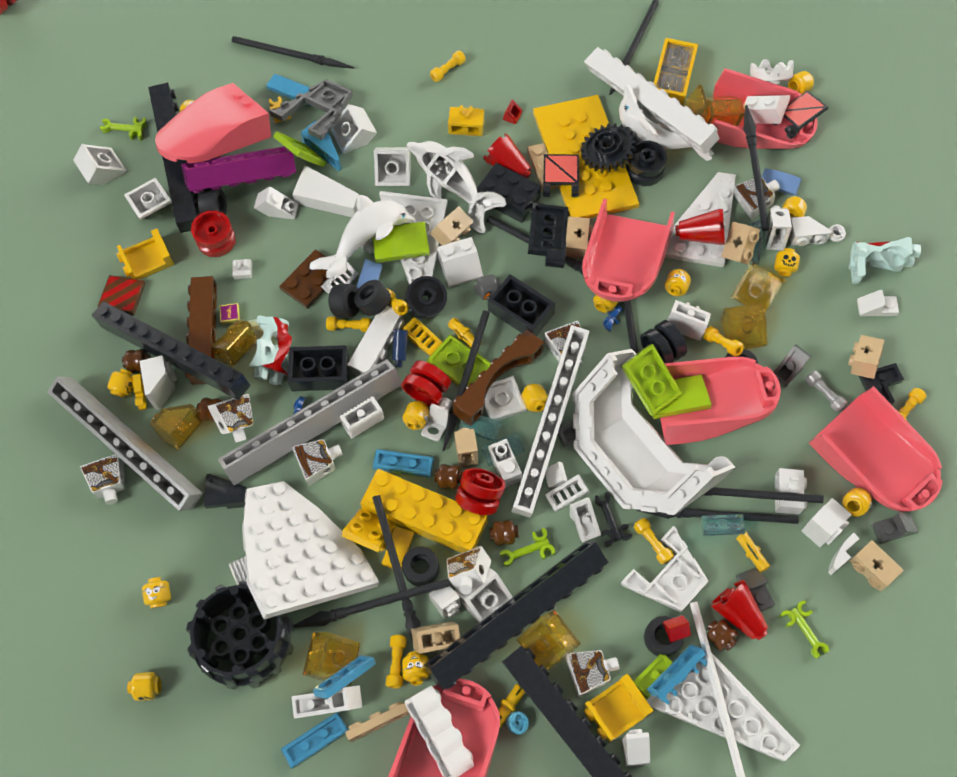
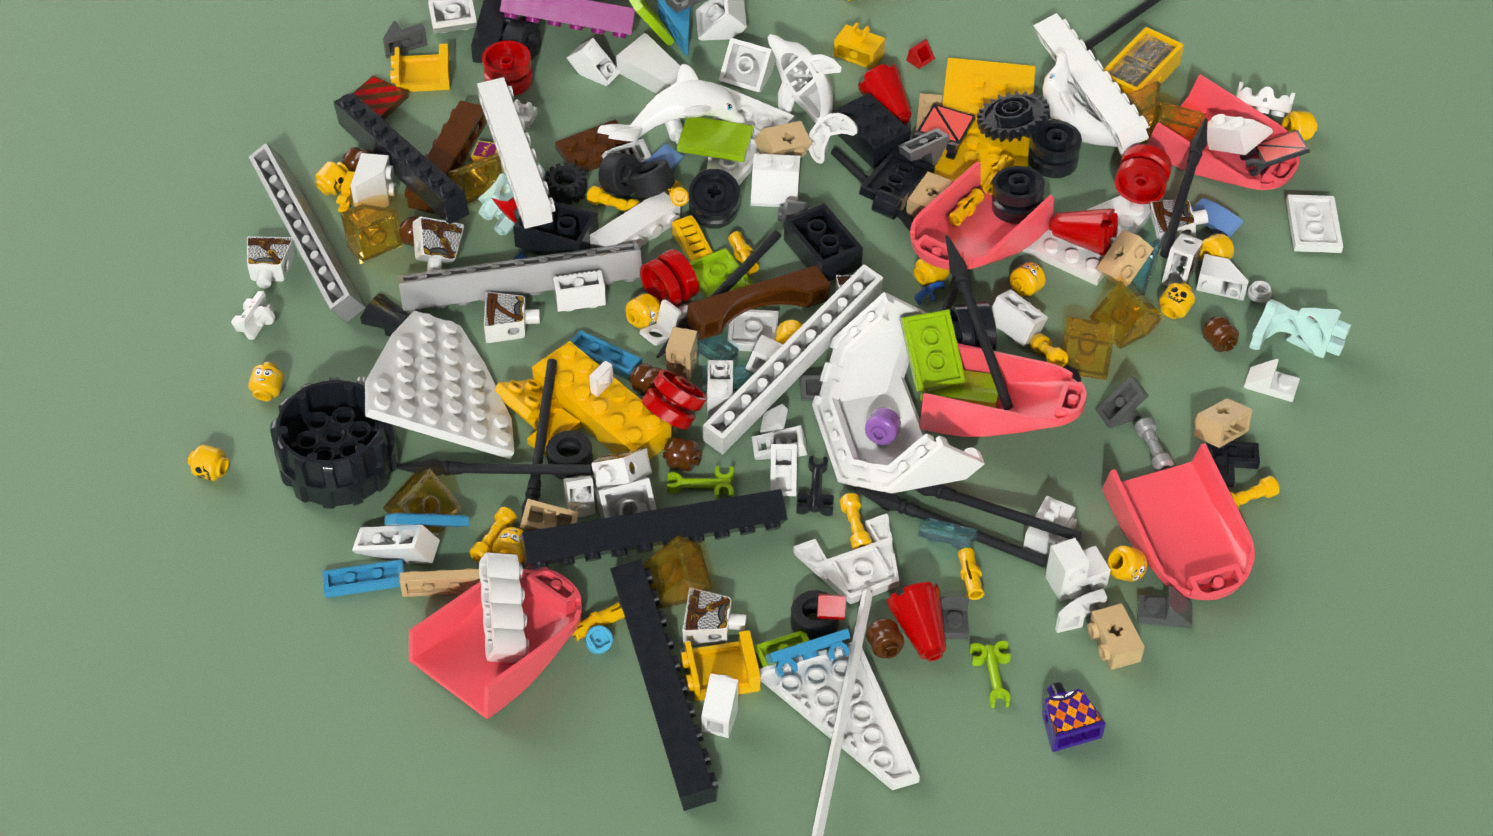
camera: 20 degrees right, 15 degrees down
(119, 234) = (405, 39): none -> dark grey slope
(120, 534) = (255, 315): none -> white hips
(263, 320) = (515, 154): none -> white brick
(306, 330) = (569, 192): none -> black tyre
(399, 347) = (660, 238): dark blue cylinder -> none
(421, 499) = (601, 378): none -> white tile
(524, 423) = (762, 352): none -> white brick
(557, 195) = (926, 146): none -> dark grey slope
(608, 237) = (966, 207): none -> yellow pin
(617, 199) = (1000, 166): none -> yellow pin
(637, 451) = (882, 426): none -> medium lavender head
(642, 214) = (1017, 193): none -> black wheel
(644, 307) = (959, 270): none -> black piece
(723, 167) = (1143, 174): none -> red wheel
(828, 279) = (1220, 334): none -> reddish brown piece
(846, 162) = (1314, 223): none -> white plate
(876, 648) = (1070, 718): none -> dark purple torso

